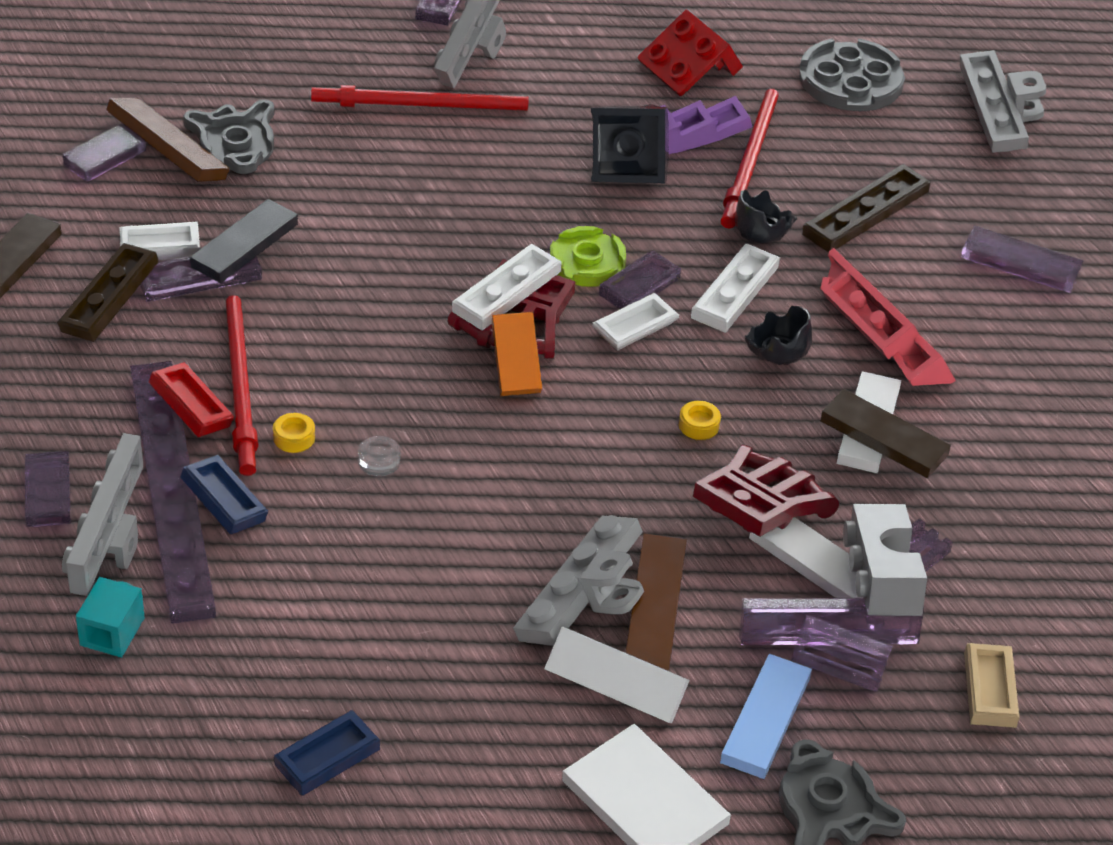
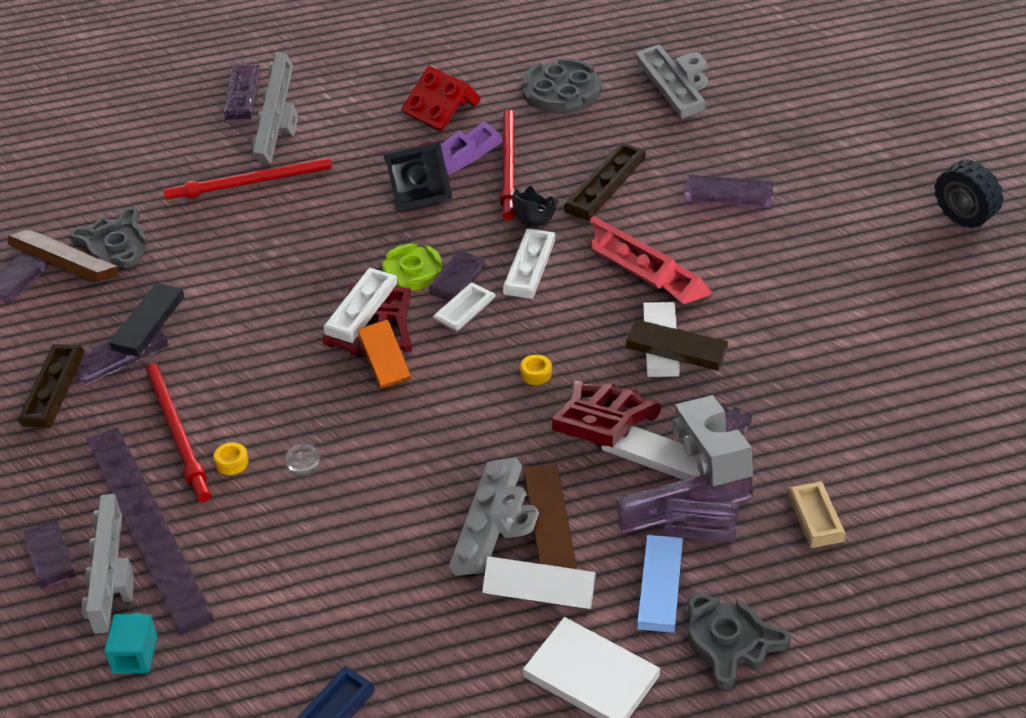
camera: 10 degrees left, 0 degrees up
(167, 240) = (86, 333): white tile -> none
(191, 399) = (143, 453): red tile -> none
(224, 494) = (191, 521): dark blue tile -> none
(782, 338) = (577, 292): black hair -> none

